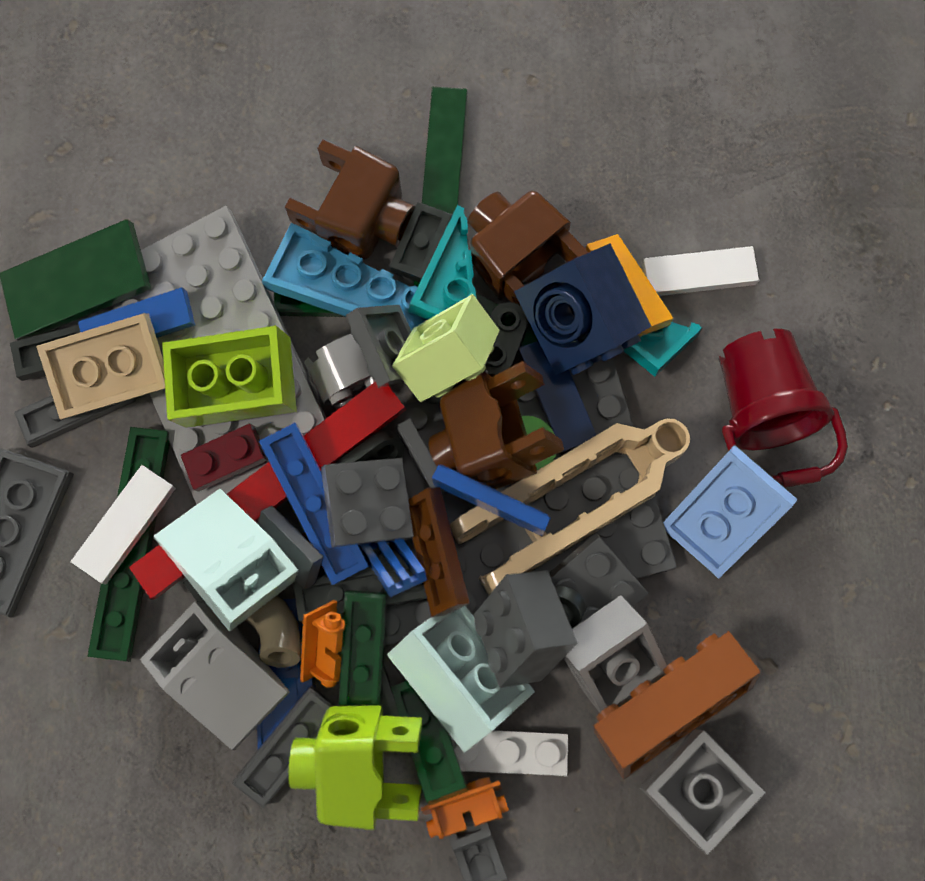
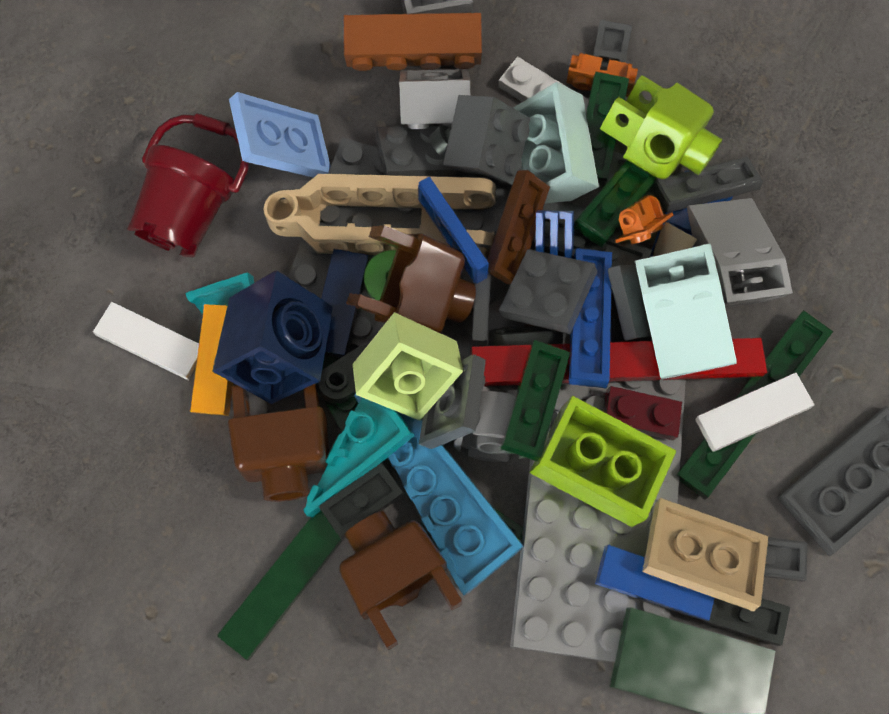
camera: 150 degrees left, 5 degrees down
(316, 388) = (535, 400): none -> dark green plate

